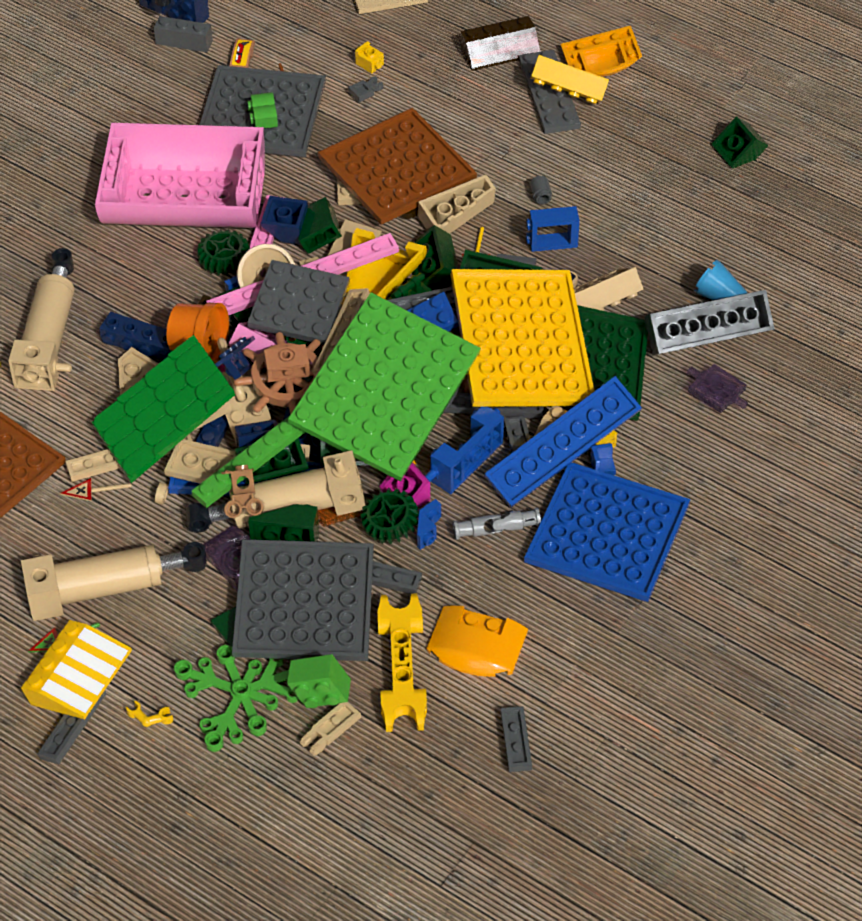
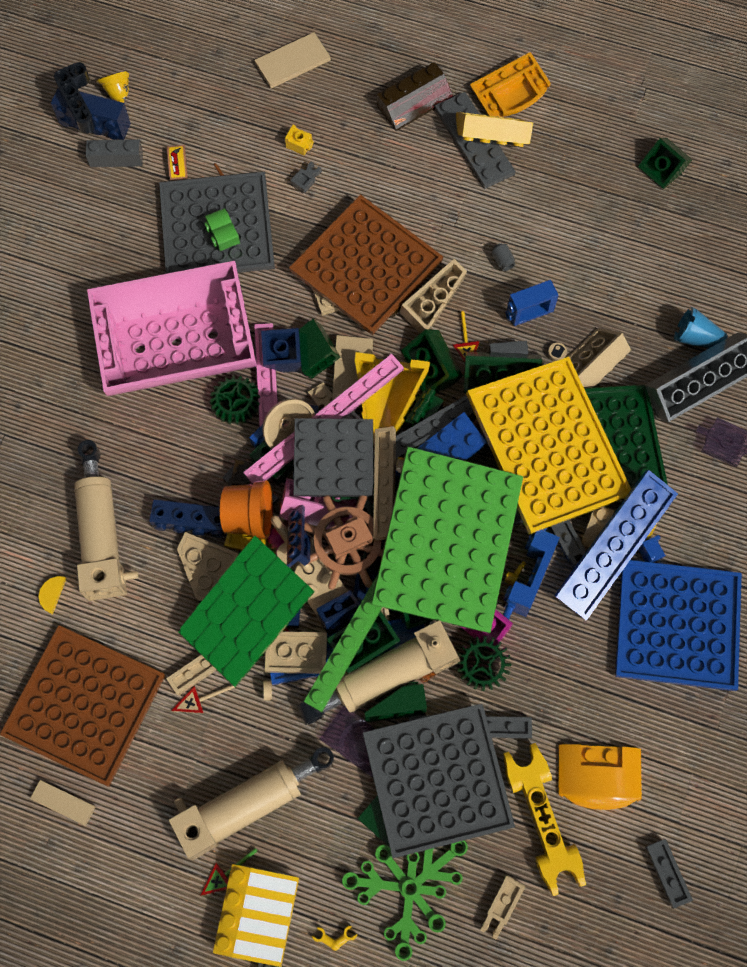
camera: 15 degrees left, 20 degrees up
(243, 497) = (350, 684): medium nougat piece -> none
(319, 681) = (486, 870): bright green brick -> none
(426, 528) = (518, 666): blue slope -> none
(510, 521) = (582, 641): light grey piece -> none

